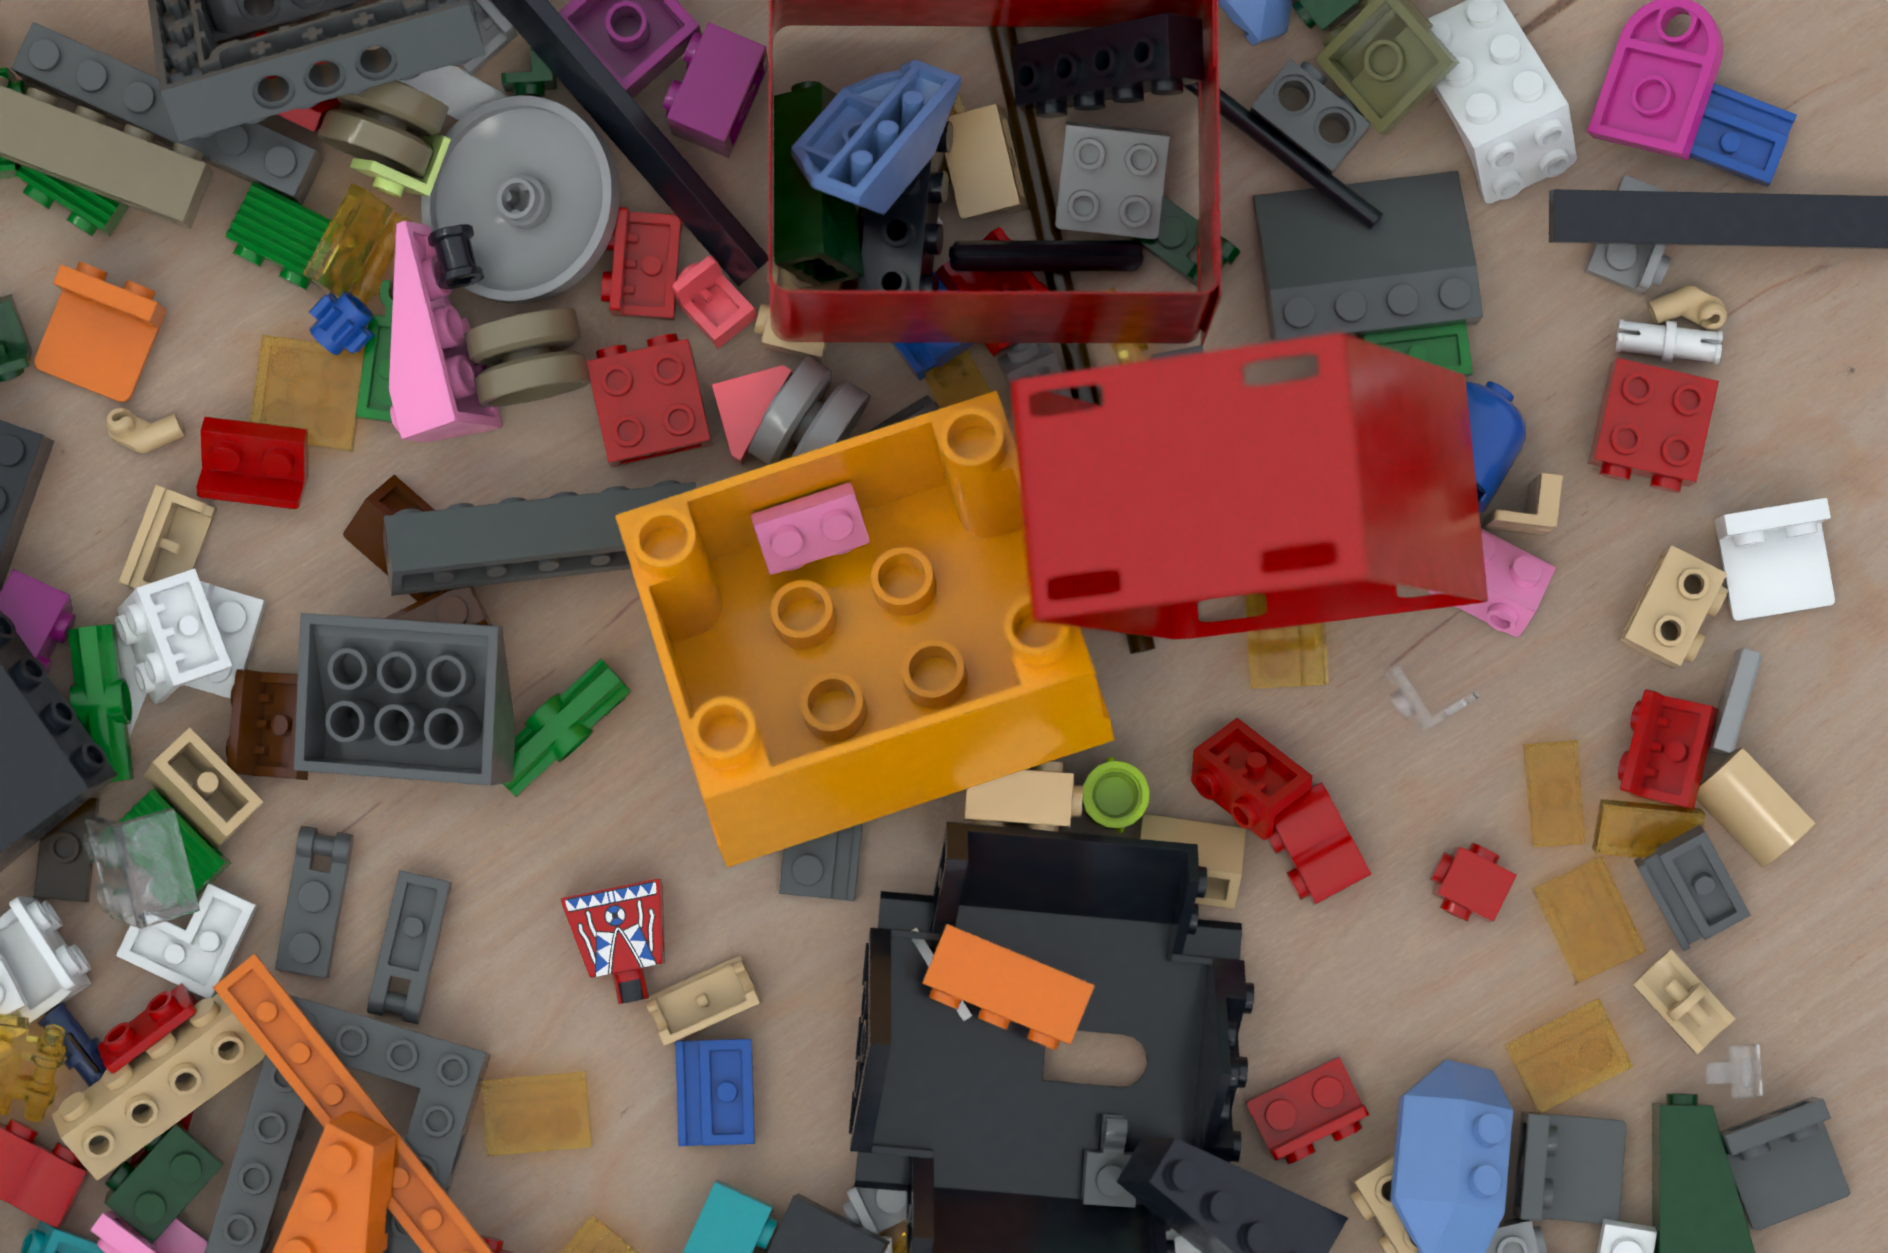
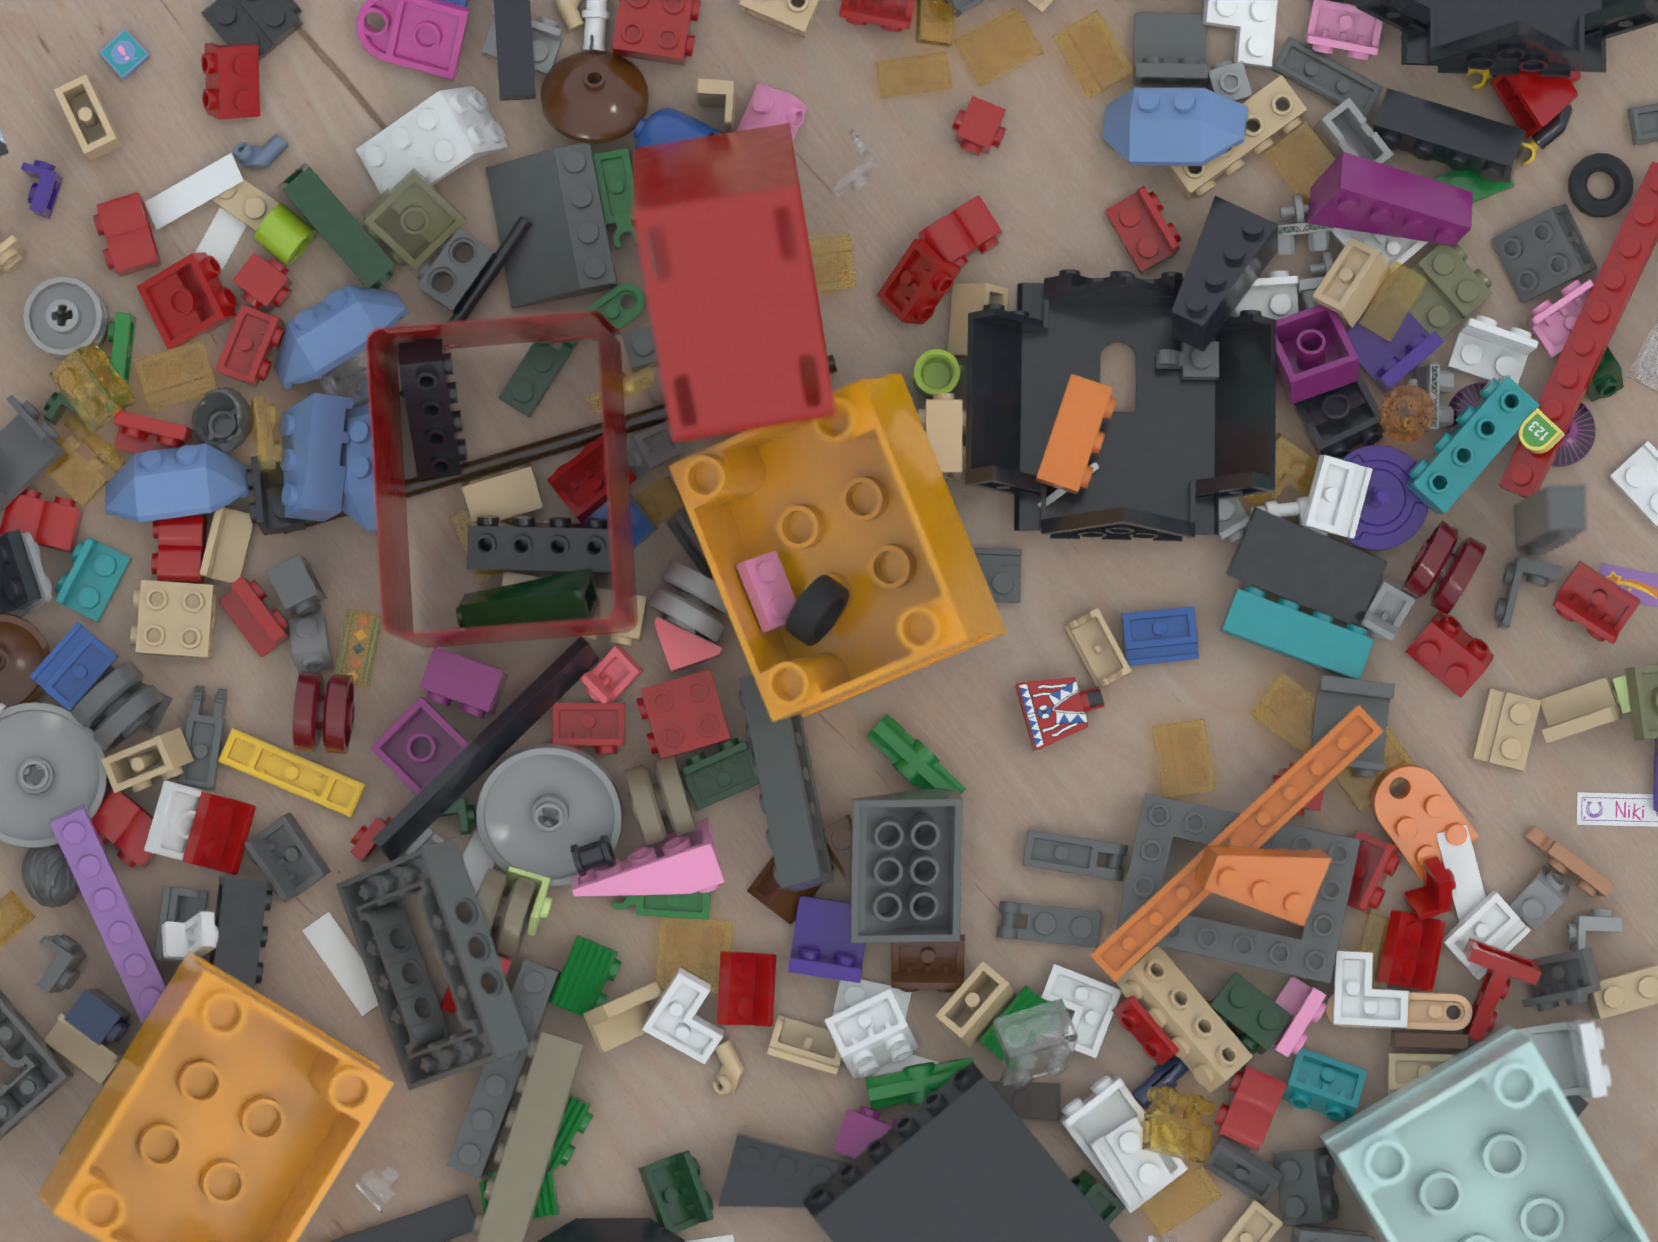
camera: 90 degrees left, 0 degrees up
(99, 332) = (661, 1104): orange bracket -> none
(217, 360) = (675, 1019): none -> white plate
(223, 284) = (621, 1018): none -> tan panel
(309, 575) = (823, 941): none -> dark purple bracket
(341, 323) = (645, 932): blue gear -> none
(349, 240) = (590, 925): clear yellow plate -> none
(560, 445) = (720, 774): none -> dark green bracket
(775, 593) = (817, 610): none -> black tyre
(878, 134) = (493, 562): medium blue wedge -> none
(1045, 255) = (565, 445): black axle -> none
(1112, 180) = (508, 403): light grey bracket -> none
(1241, 332) = (611, 305): none -> green plate
(1526, 331) = (597, 110): none -> reddish brown dish

